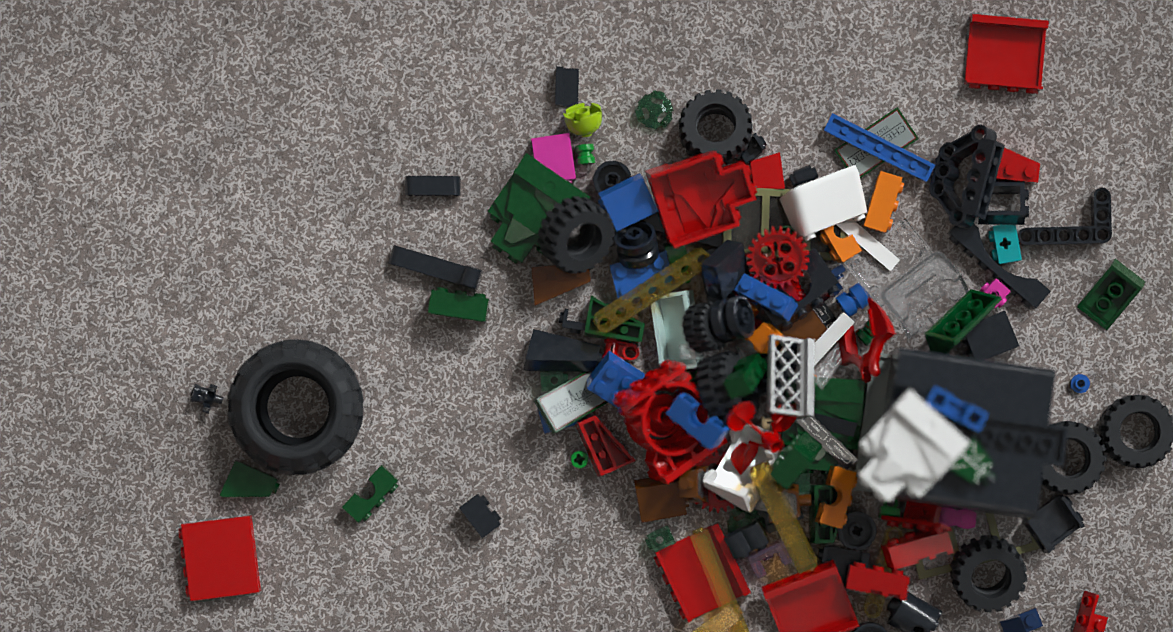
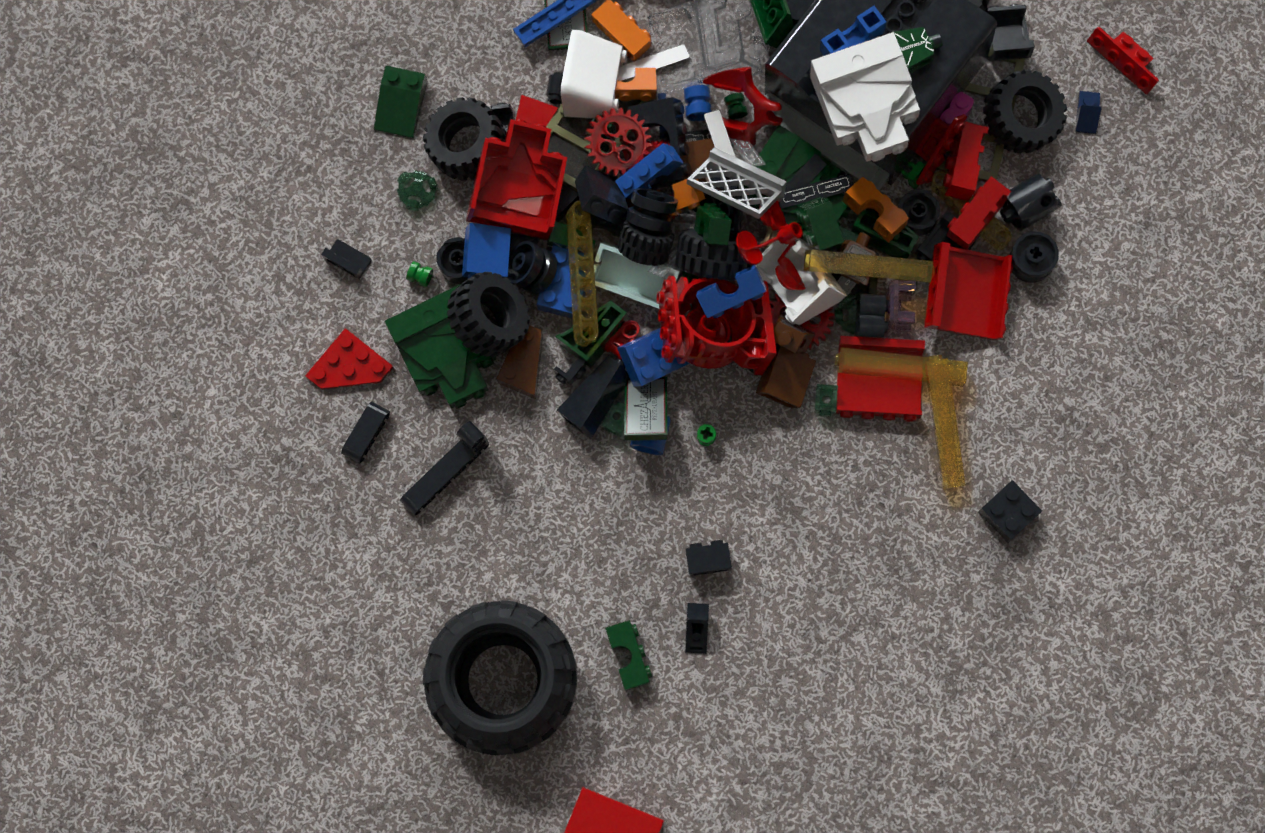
camera: 50 degrees left, 10 degrees down
(206, 396) = (440, 766): black piece -> none
(249, 482) = (549, 770): dark green slope -> none
(422, 536) = (697, 628): none -> black slope
(459, 304) = (493, 466): dark green brick -> none
(481, 139) = (348, 364): none -> red plate
(556, 154) = (400, 296): dark pink brick -> none
(583, 119) = (387, 256): lime cylinder -> none
(602, 447) = (705, 406): red wedge -> none
(720, 54) = (400, 101): none -> dark green slope

